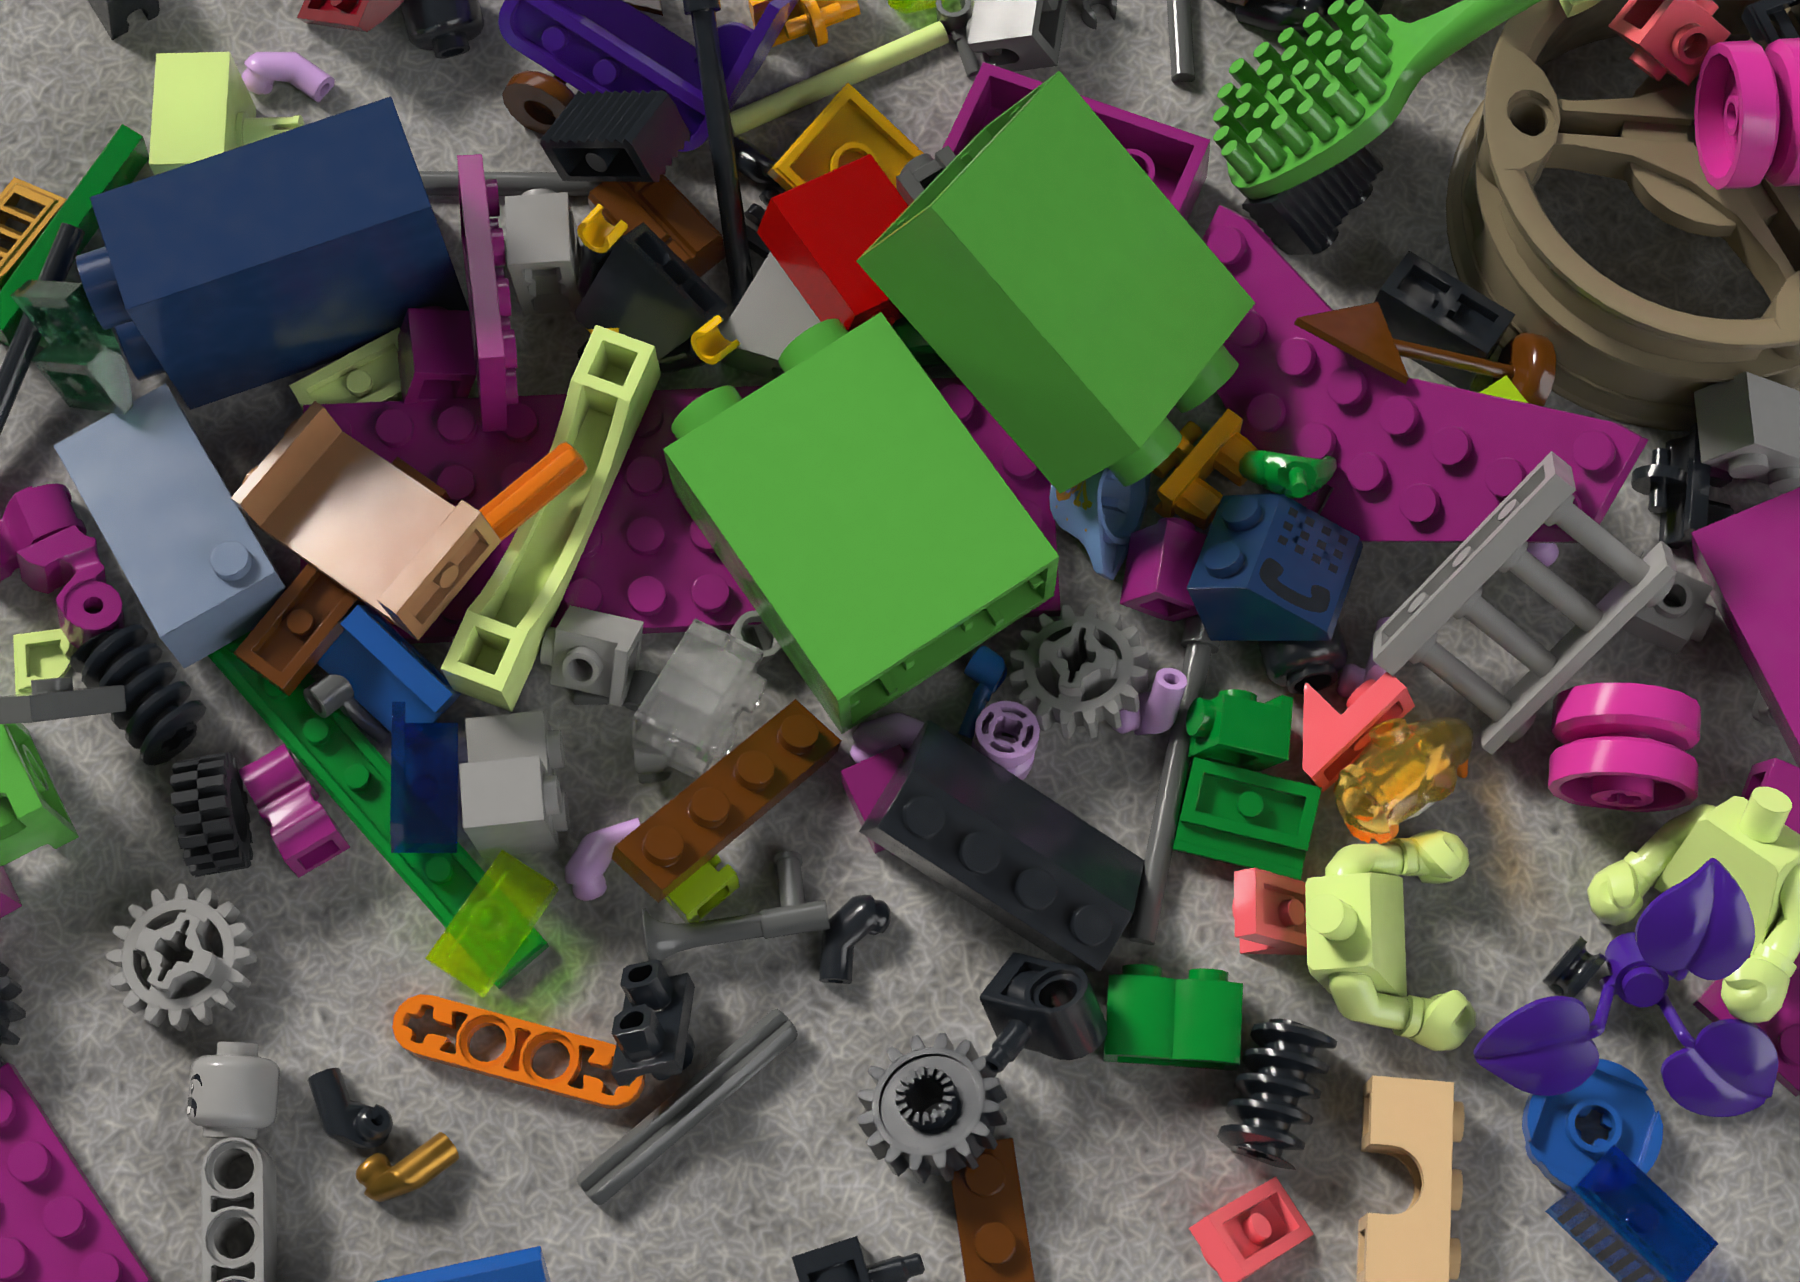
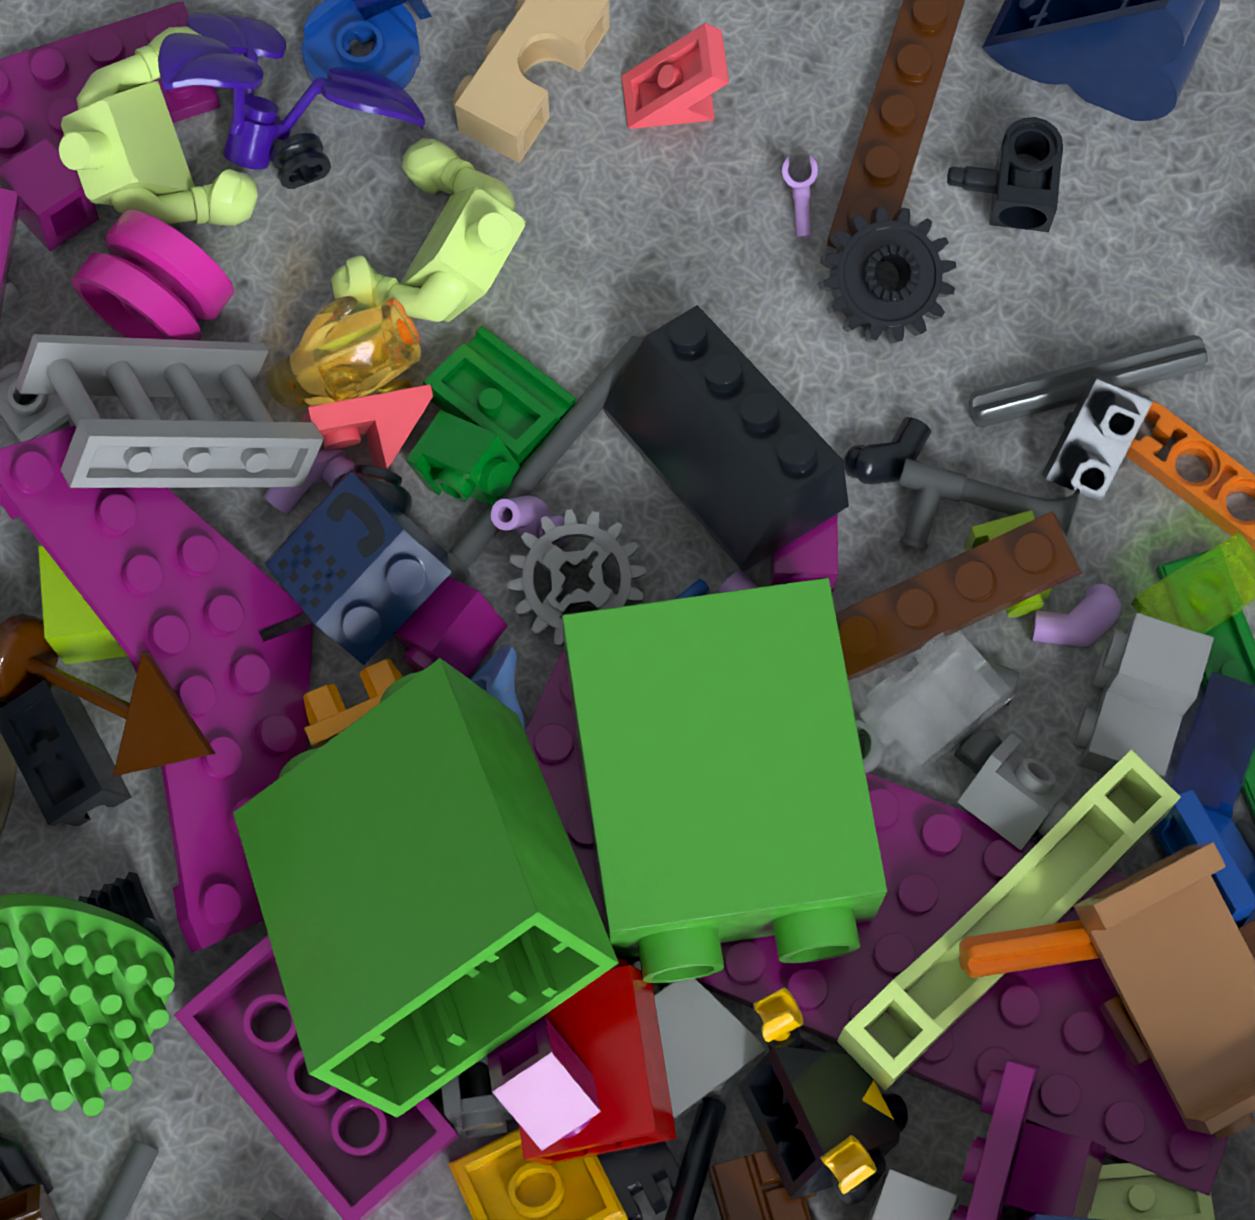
camera: 155 degrees left, 0 degrees up
(875, 180) = (543, 1084): none -> brick
(1010, 753) = (680, 556): lavender wheel -> none
(1041, 1010) = (767, 317): black piece -> none
(1068, 1185) = (801, 197): none -> lavender hand
(1172, 1019) = (649, 261): green brick -> none
(1269, 913) = (520, 303): coral slope -> none
(1274, 1090) = (592, 169): black piece -> none
(1287, 473) = (295, 642): green piece -> none

